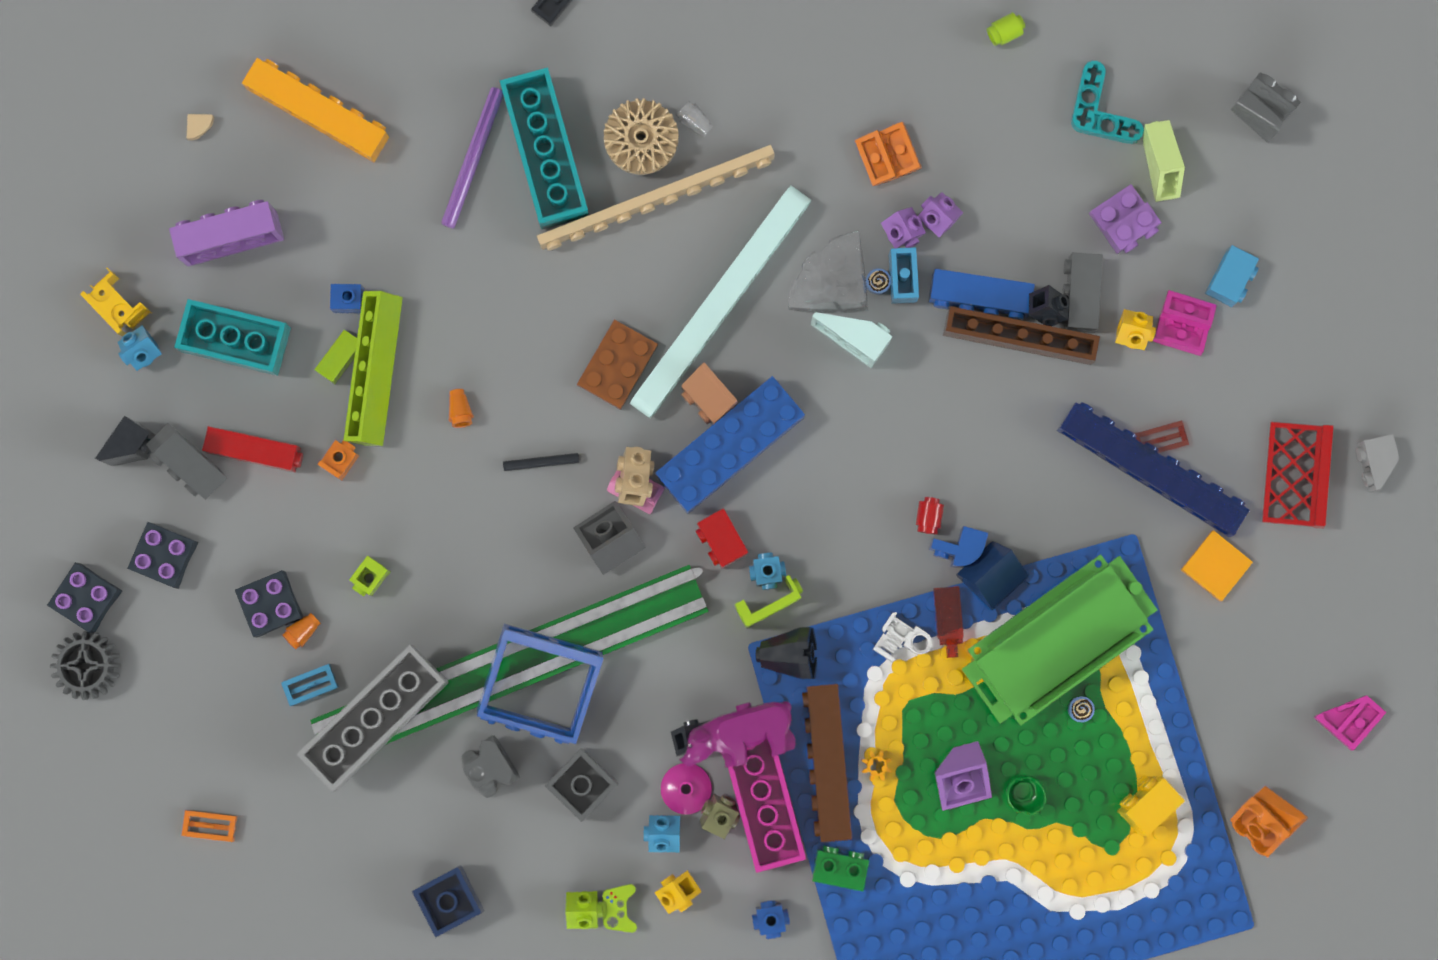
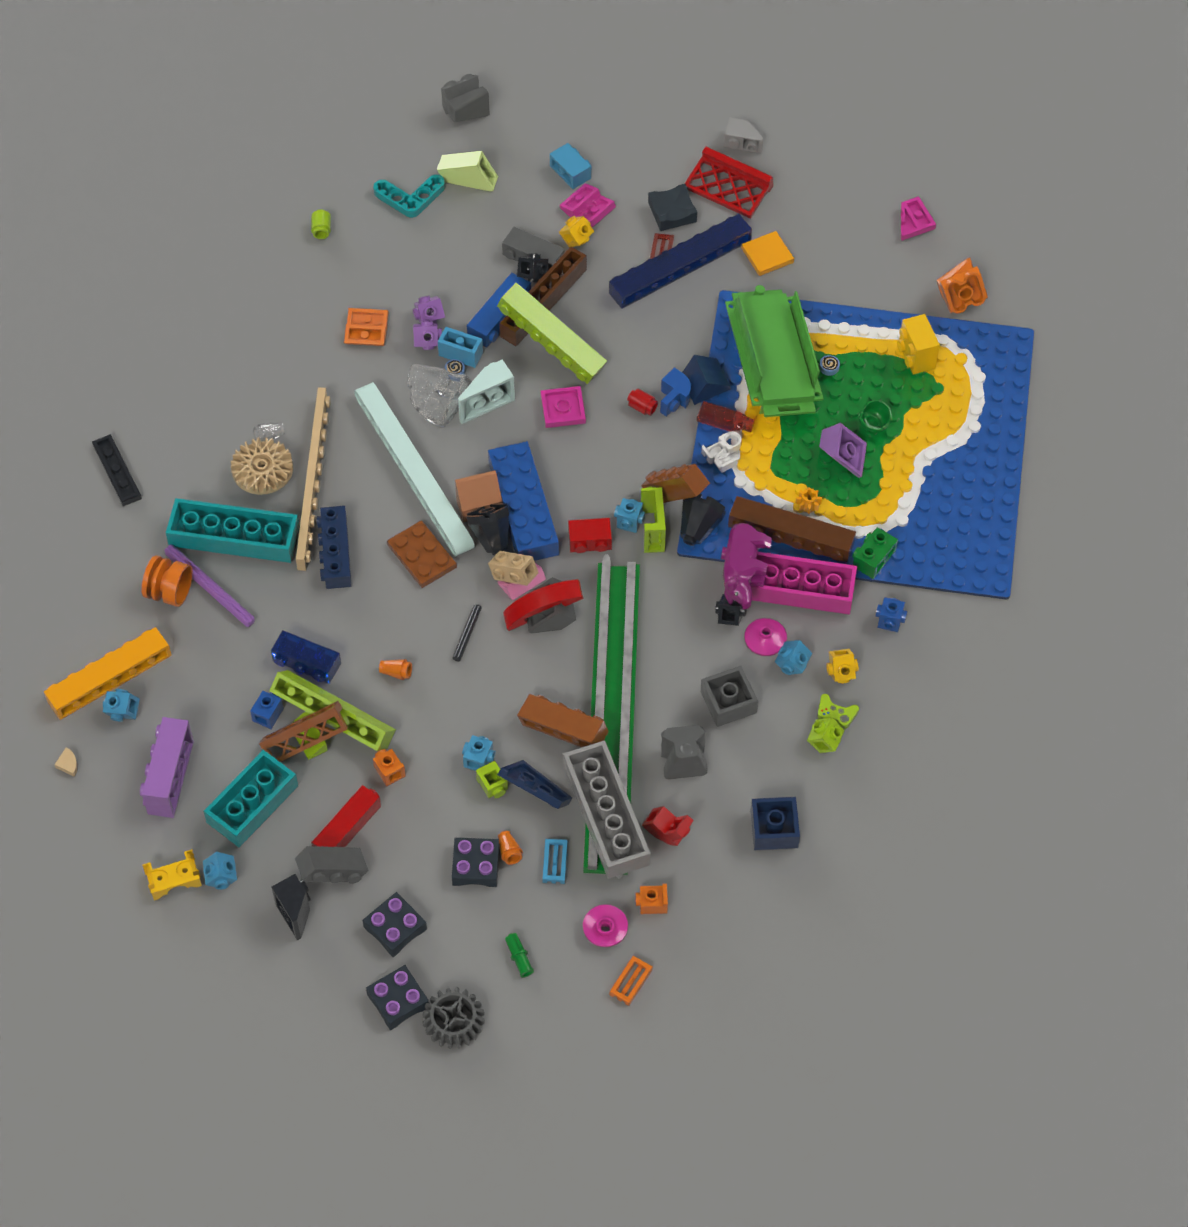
camera: 65 degrees left, 25 degrees down
(185, 698) = (519, 955): none -> green axle
(241, 773) = (601, 917): none -> dark pink dish
(280, 145) = (120, 705): none -> dark azure brick
(316, 812) = (654, 905): none -> orange brick
(330, 347) = (303, 724): none -> dark orange fence
(383, 623) = (535, 783): none -> dark blue wing
(384, 543) = (478, 752): none -> dark azure brick
(396, 787) = (666, 826): none -> red brick
(427, 306) = (305, 657): none -> clear blue brick
(446, 113) = (167, 581): none -> orange wheel
(465, 621) = (561, 721): none -> dark orange brick
(551, 645) = (661, 665): blue window -> none
(578, 268) = (335, 547): none -> dark blue brick
(602, 531) = (541, 600): none -> red slope
(675, 425) = (491, 526): none -> black cone
(719, 815) = (797, 615): olive brick -> none
(813, 611) = (678, 482): none -> dark orange brick
(881, 428) = (563, 407): none -> dark pink plate
(963, 372) = (551, 333): none -> lime brick
(1125, 219) = (496, 210): medium lavender plate -> none
(1226, 425) = (672, 207): none -> black brick

